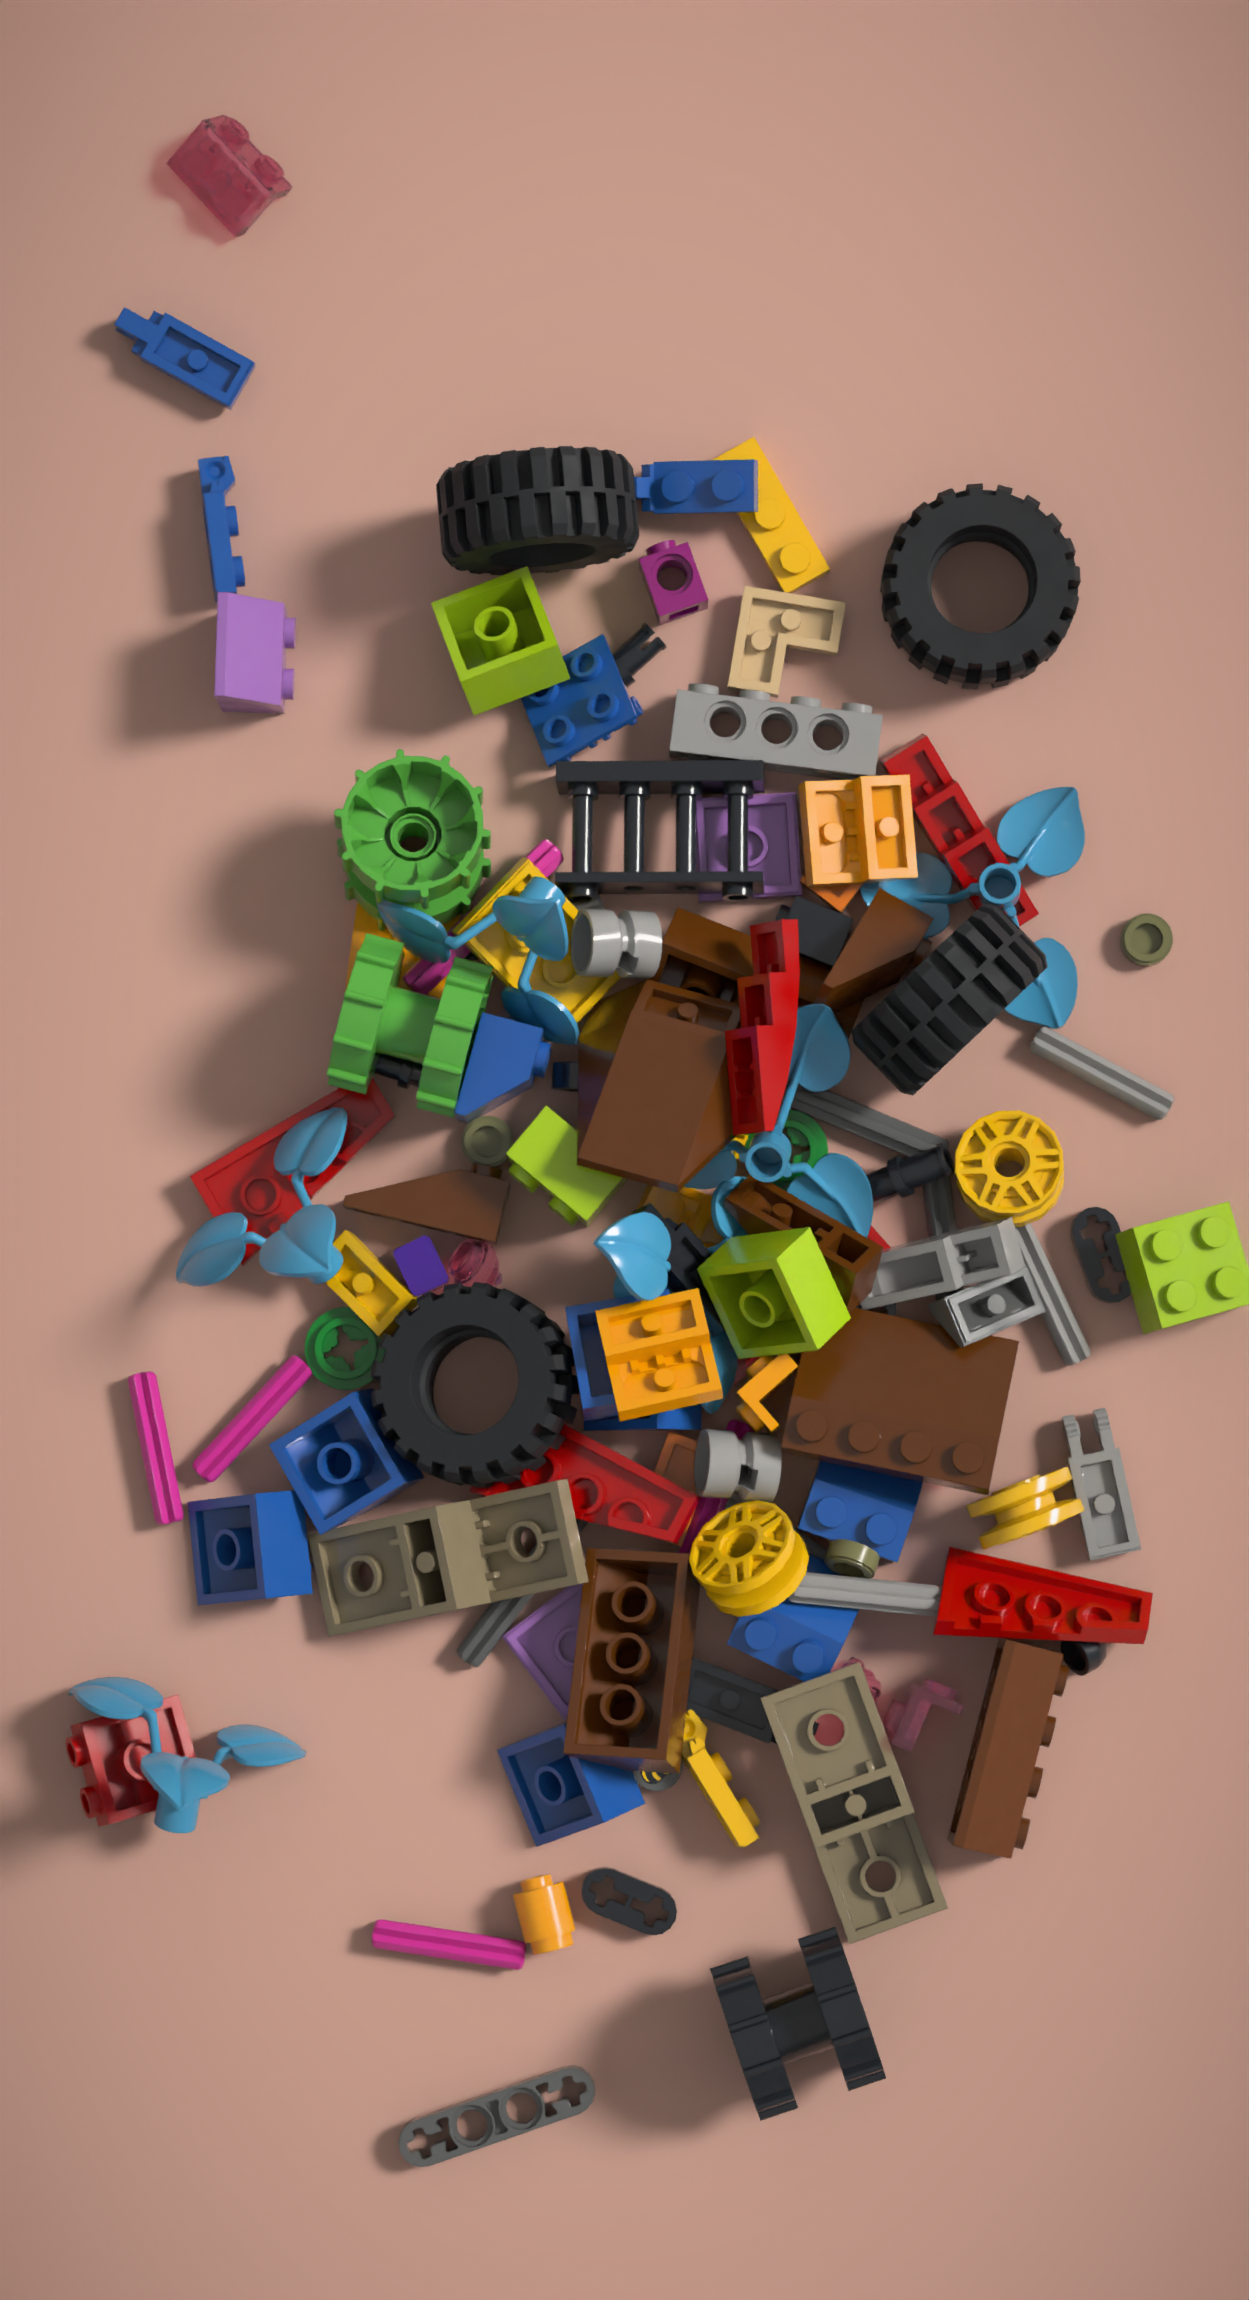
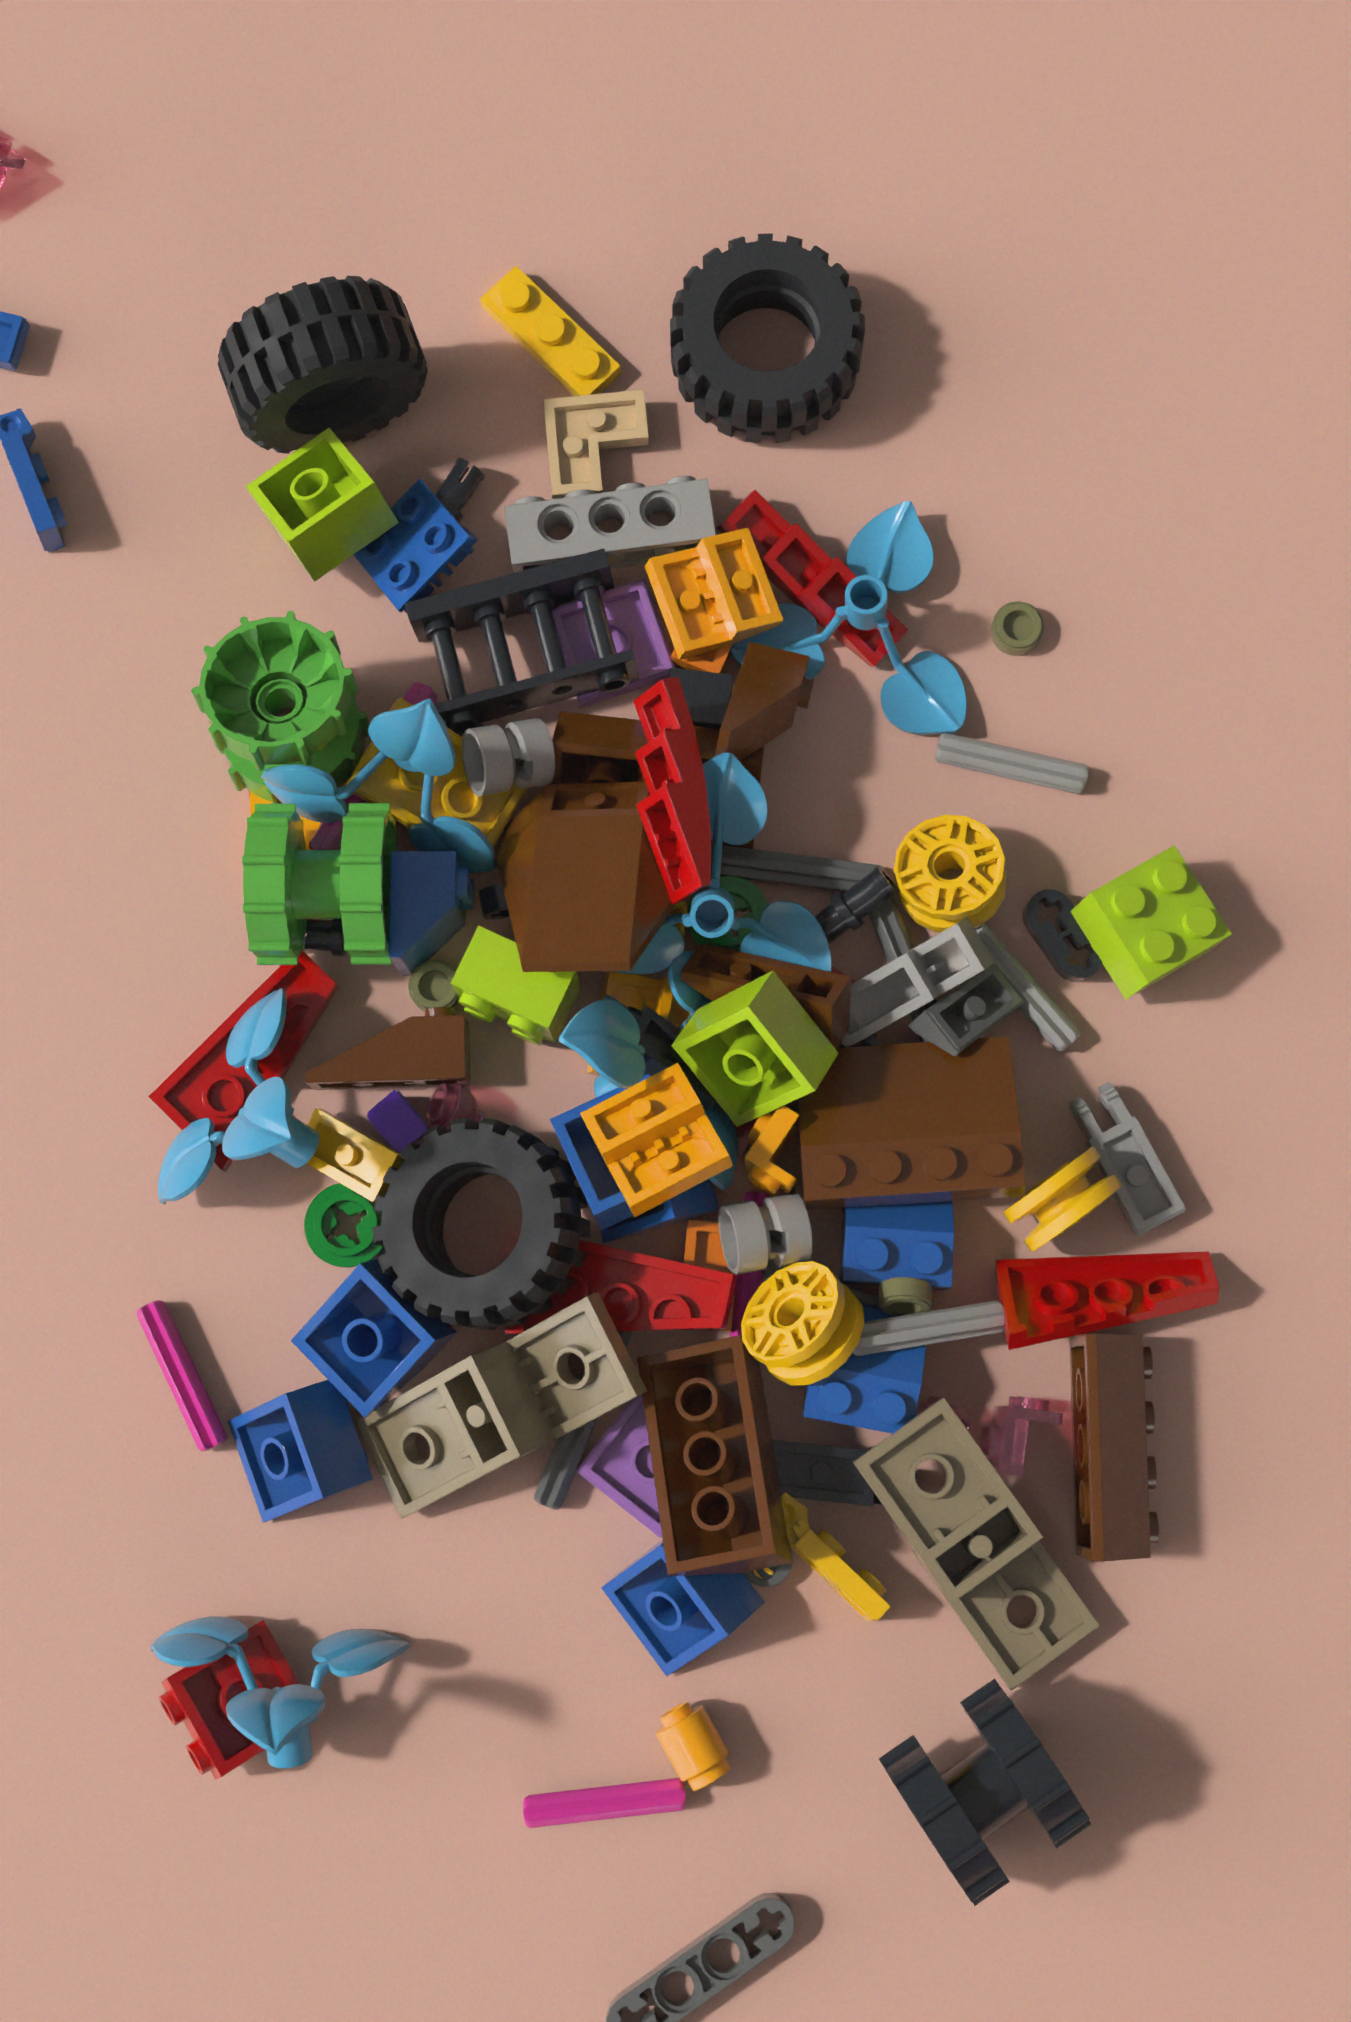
camera: 15 degrees left, 5 degrees down
(252, 654) = (85, 581): medium lavender slope -> none
(252, 1418) = (271, 1320): dark pink axle -> none
(622, 1912) = (773, 1720): black beam -> none
(677, 603) = (478, 434): magenta brick -> none
(699, 487) = (476, 320): blue hinge -> none
(949, 998) = (847, 717): black tyre -> none
(1083, 1656) = (1153, 1337): black hinge -> none

